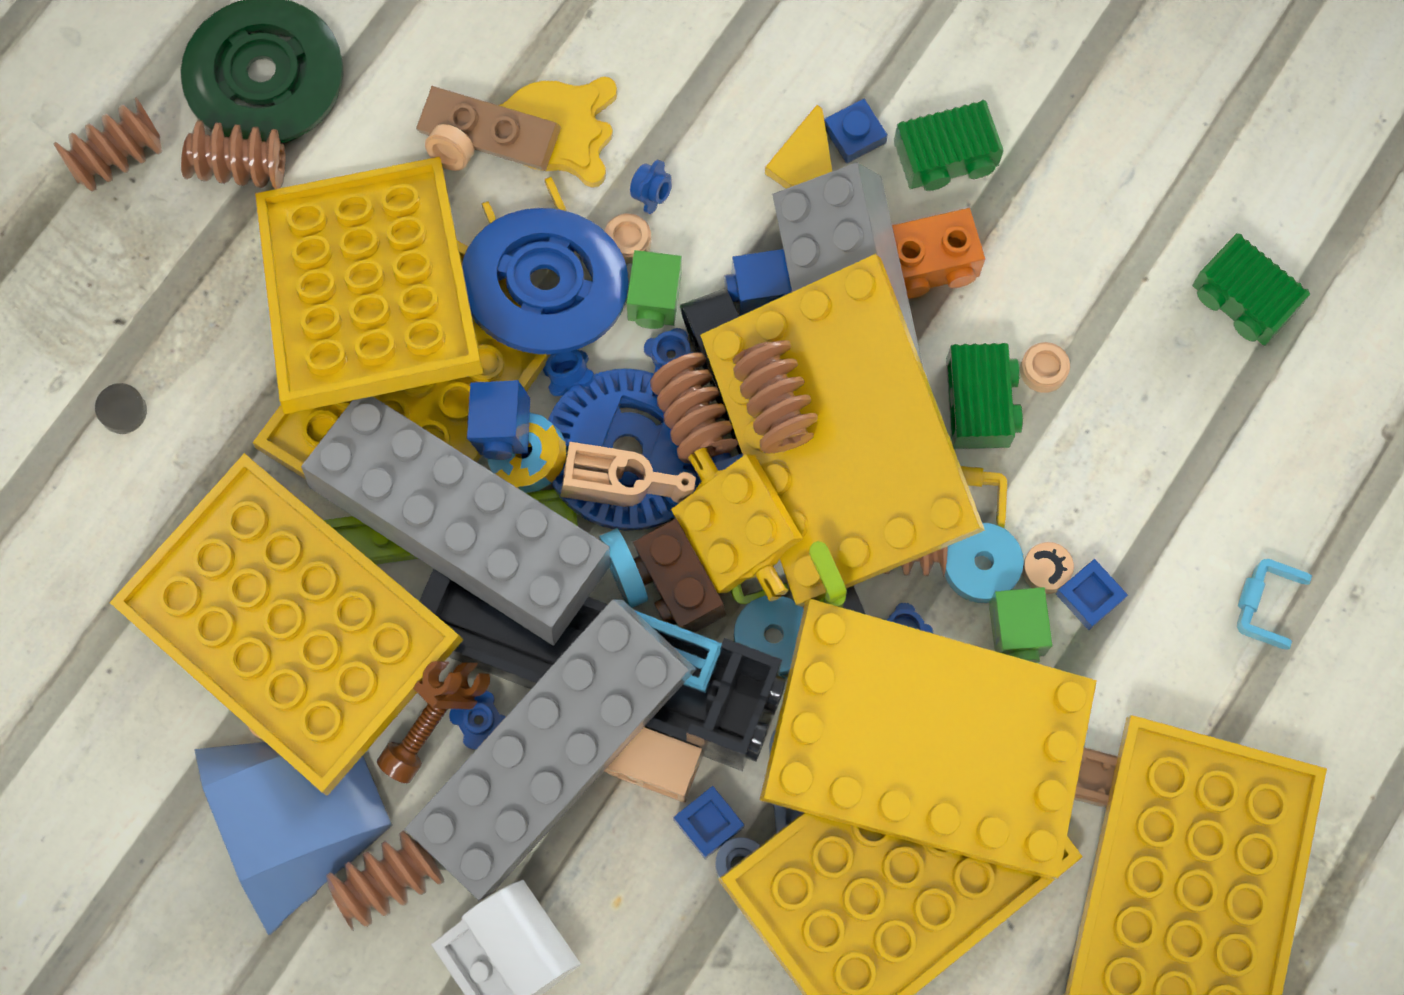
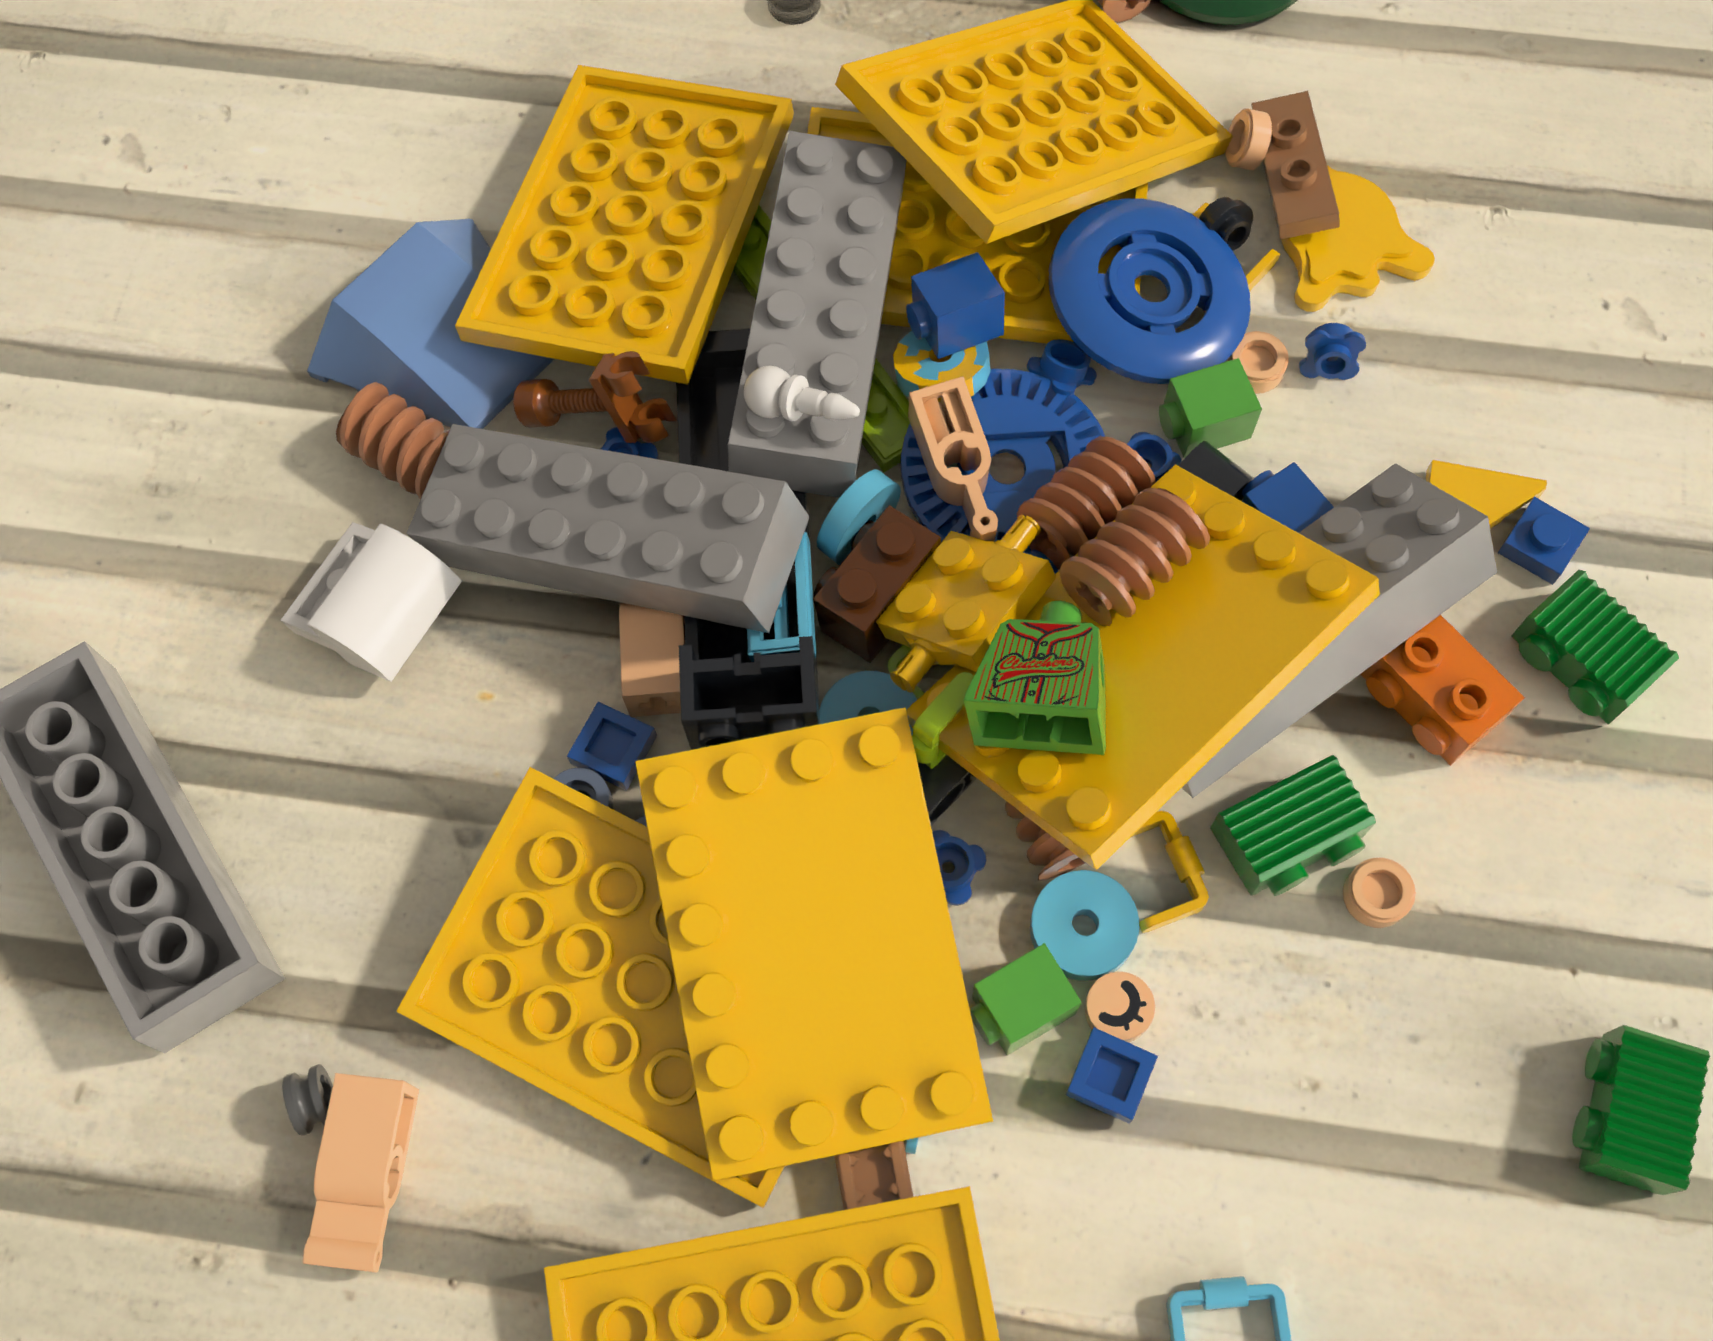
camera: 70 degrees right, 5 degrees down
(510, 197) = (1230, 220): none -> black plate
(534, 576) = (774, 393): none -> white bar
(844, 498) = (1041, 685): none -> bright green torso

